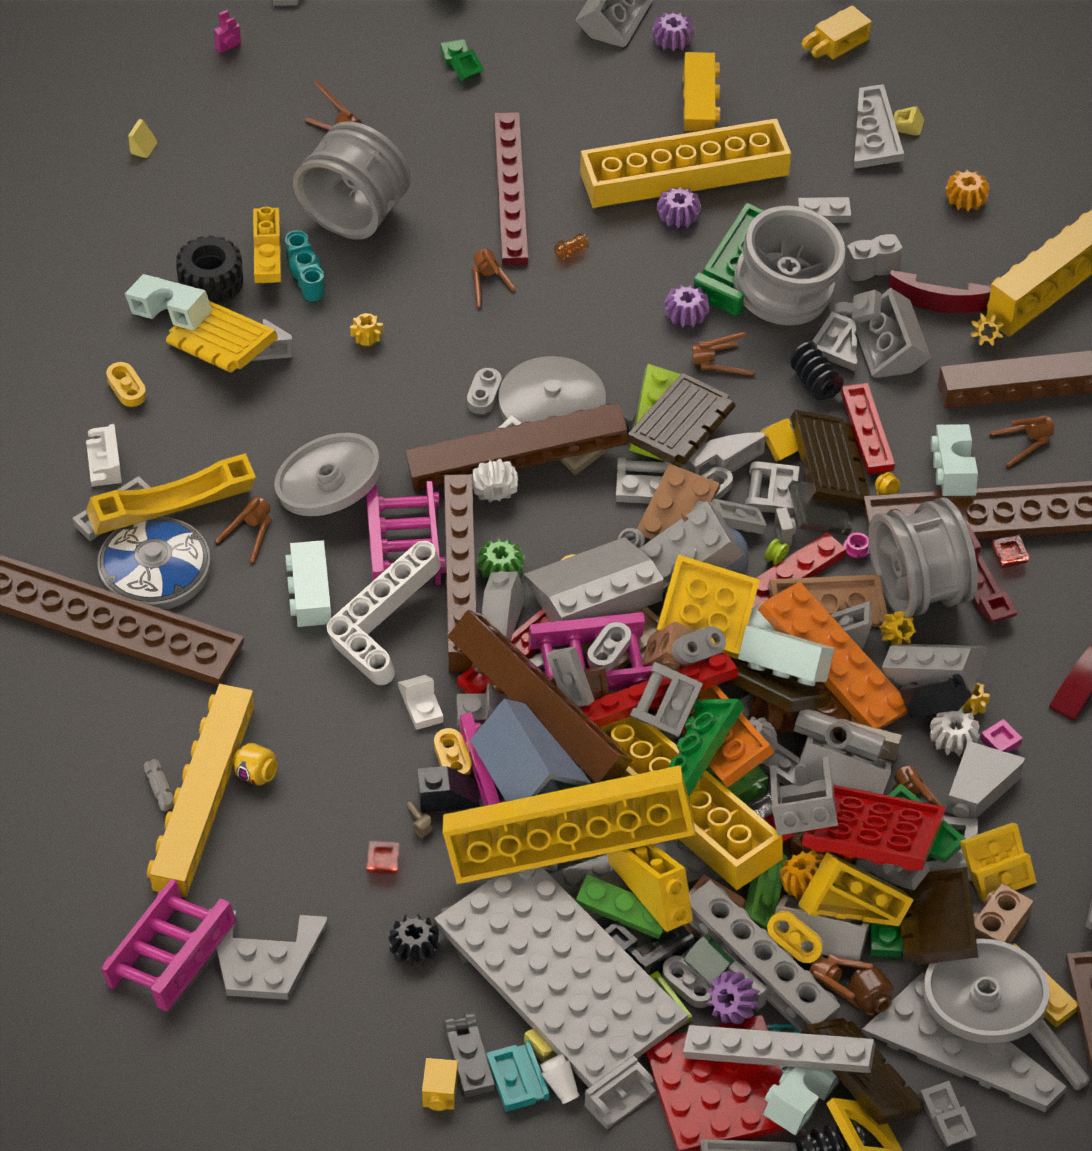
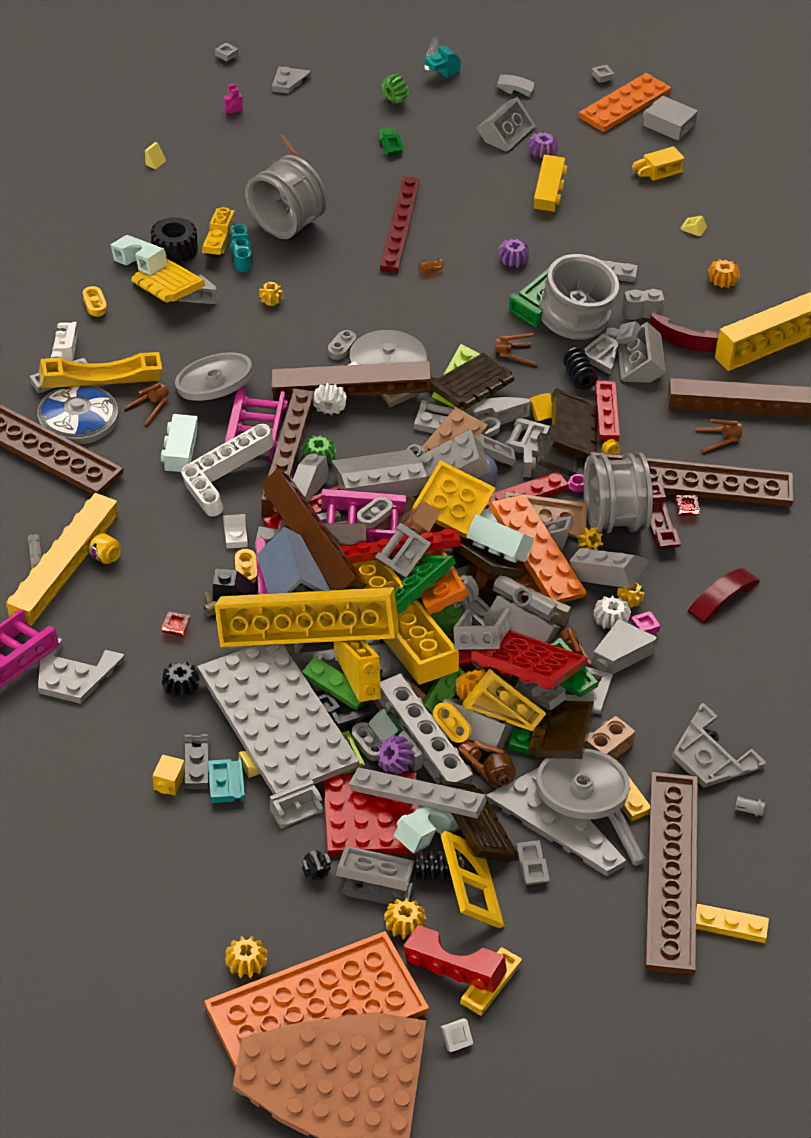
camera: 10 degrees right, 5 degrees down
(487, 265) = (367, 267): dark orange plant -> none
(560, 1078) = (255, 786): white cone -> none
(570, 675) = (338, 522): light grey plate -> none
(685, 160) = (529, 223): yellow brick -> none
(686, 306) = (500, 314): medium lavender gear -> none
(701, 645) = (438, 520): light grey plate -> none
(776, 552) = (517, 477): lime bush -> none
(876, 130) = (669, 227): light grey wing -> none
(935, 696) = (602, 585): black hinge -> none
(953, 460) = (662, 439): light aqua arch -> none
(979, 326) = (708, 366): yellow gear -> none
(998, 859) = (619, 699): yellow slope -> none

